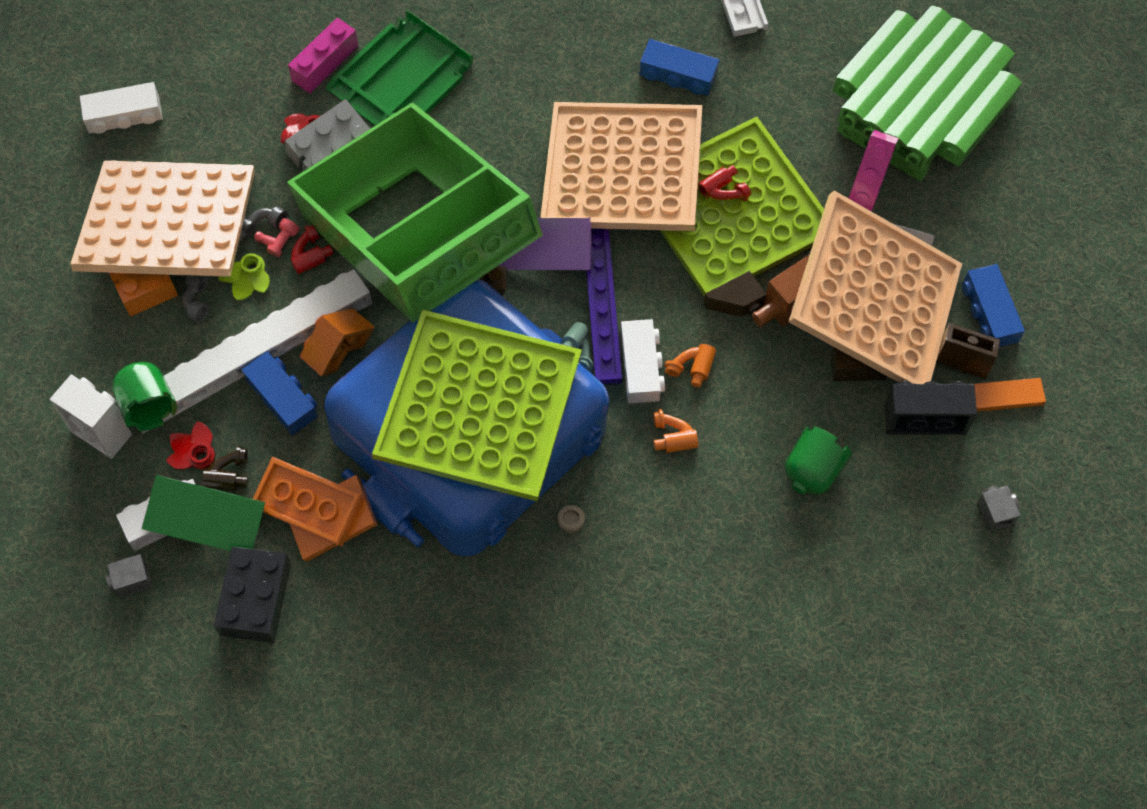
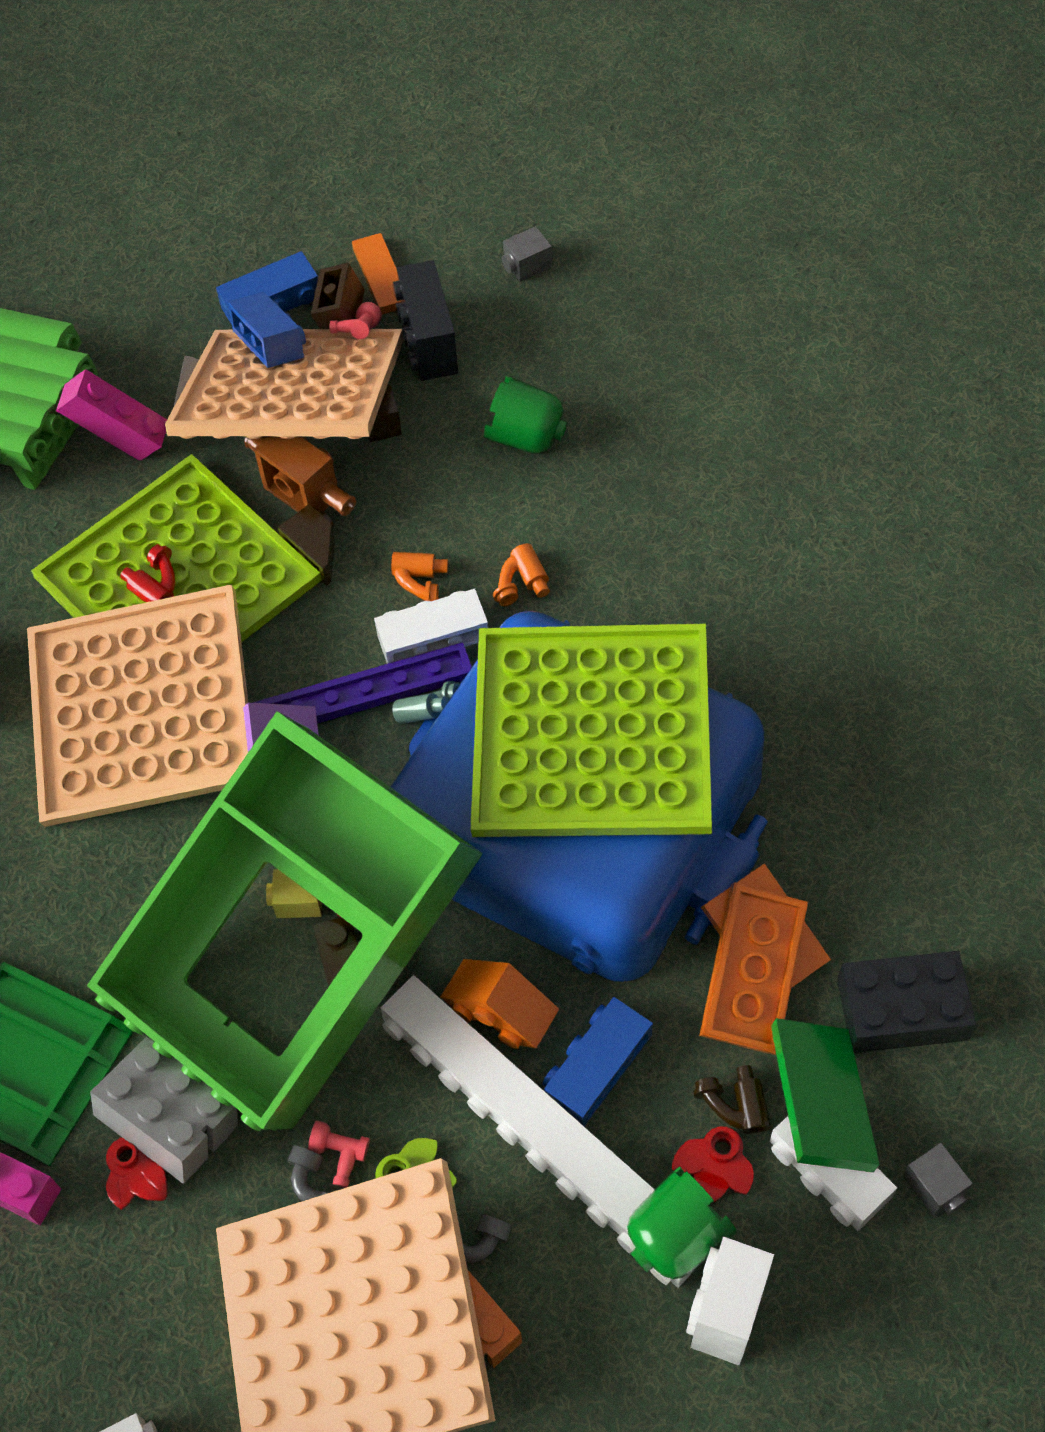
camera: 100 degrees left, 5 degrees down
(309, 259) = (370, 1095): red plant -> none
(937, 287) = (266, 329): none -> blue brick
(948, 369) = (367, 317): none -> coral piece

